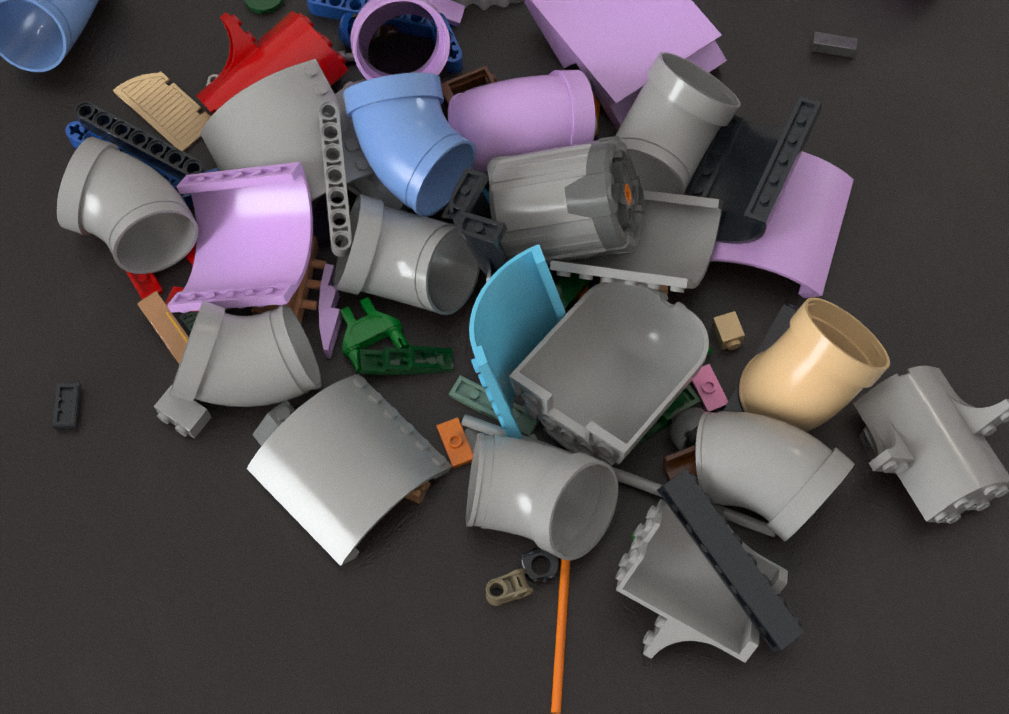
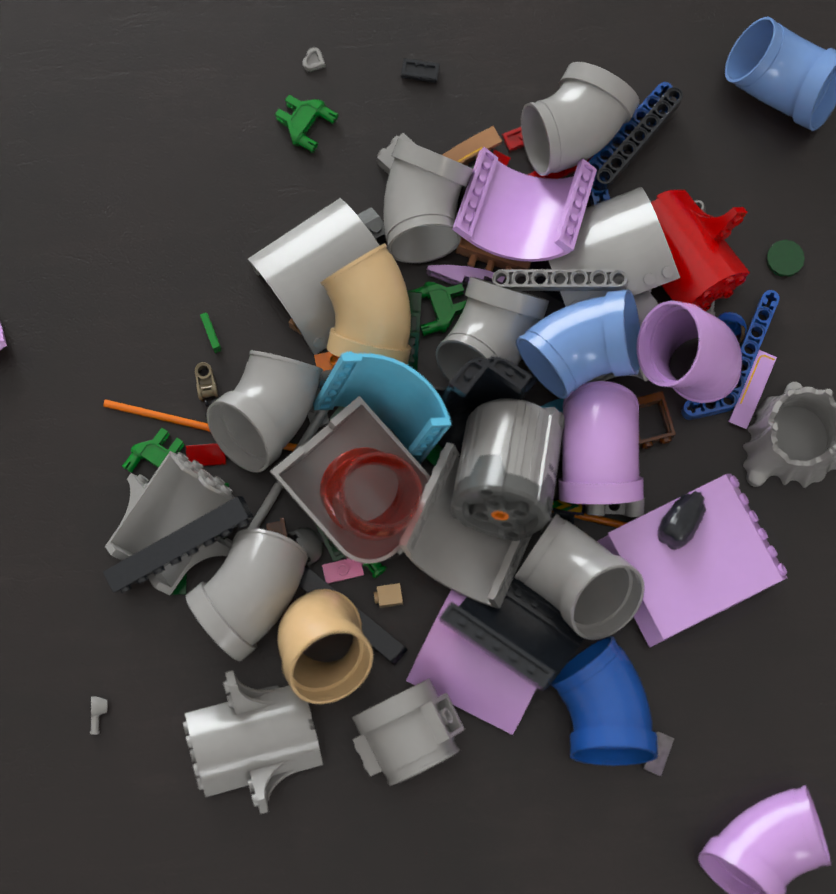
camera: 95 degrees right, 10 degrees up
(60, 538) = (313, 60): none -> light grey tile
(144, 534) = (302, 119): none -> green connector
(164, 108) = (682, 165): tan piece -> none
(397, 387) = (370, 307): none -> tan cylinder
(443, 593) = (210, 332): none -> green tile
(590, 28) = (682, 520): none -> black hair
(601, 572) = (206, 454): none -> red slope
(614, 626) = (152, 451): none -> green connector
(633, 330) = (398, 513): none -> clear red cylinder
(812, 65) = (607, 707): none -> blue cylinder
(886, 270) = (407, 733): none -> light grey cylinder
(940, 639) = (98, 707): none -> light grey bar

